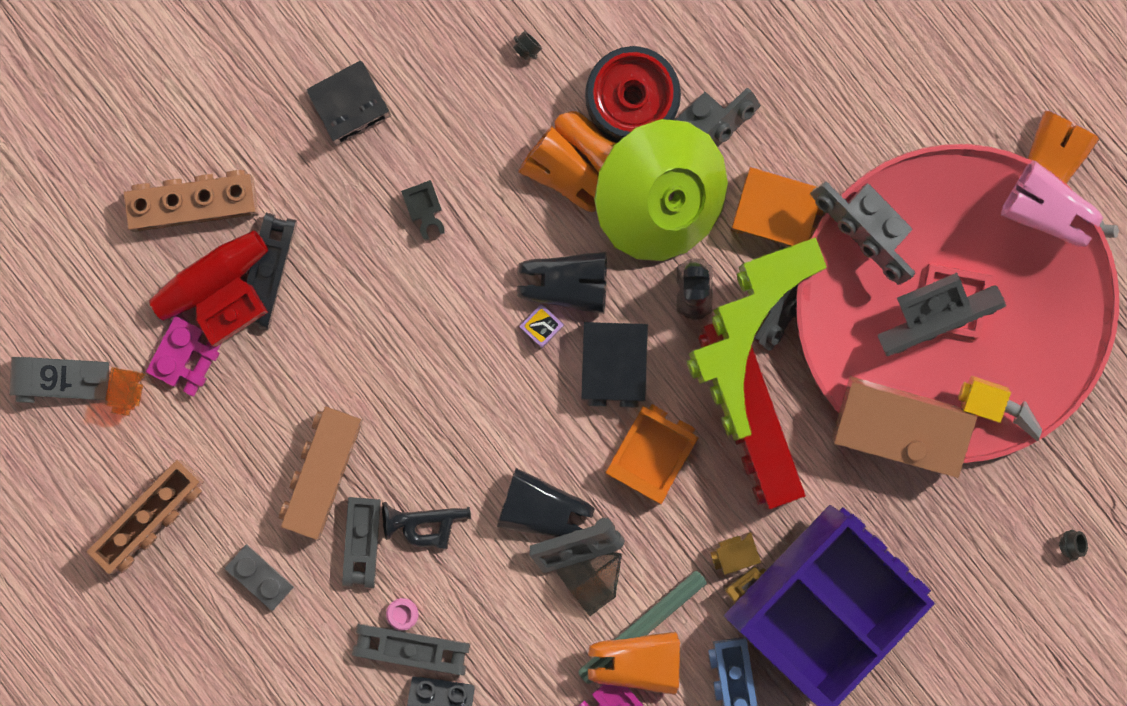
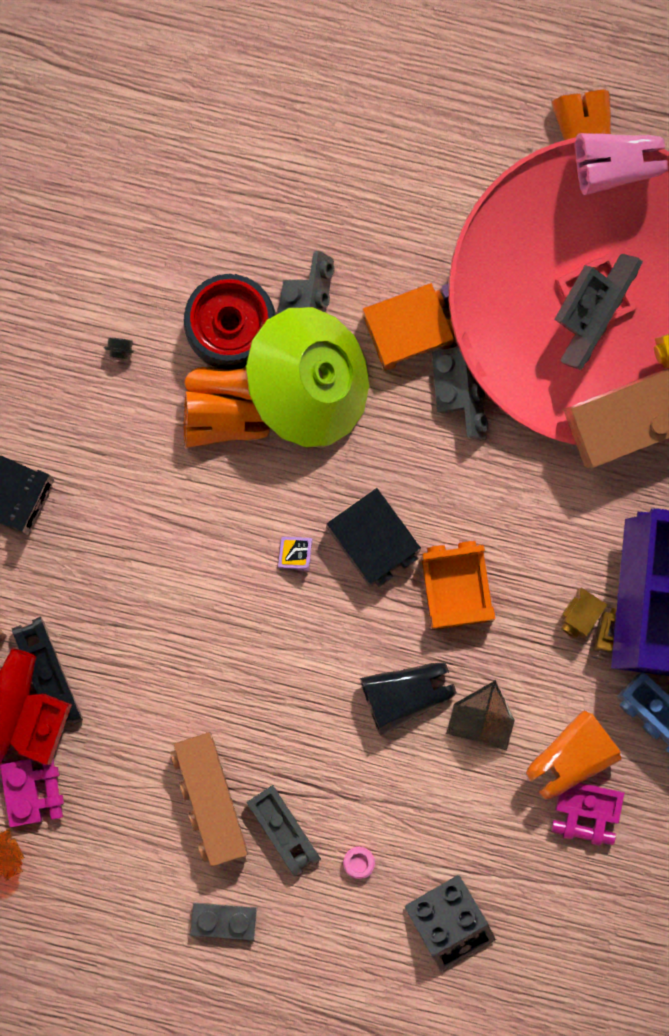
camera: 40 degrees left, 5 degrees down
(139, 523) = (96, 943): nougat brick -> none
(409, 520) = (296, 792): black piece -> none
(411, 649) = (387, 885): dark grey plate -> none
(423, 204) = (131, 528): pearl dark grey plate -> none
(568, 281) = (289, 503): black piece -> none
(577, 546) = (455, 702): dark grey plate -> none
(652, 618) = (555, 715): sand green axle -> none
(695, 291) = (393, 432): black piece -> none
(725, 361) = (448, 427): lime arch -> none
(766, 447) = (510, 493): red brick -> none
(871, 225) = (491, 278): dark grey bracket -> none

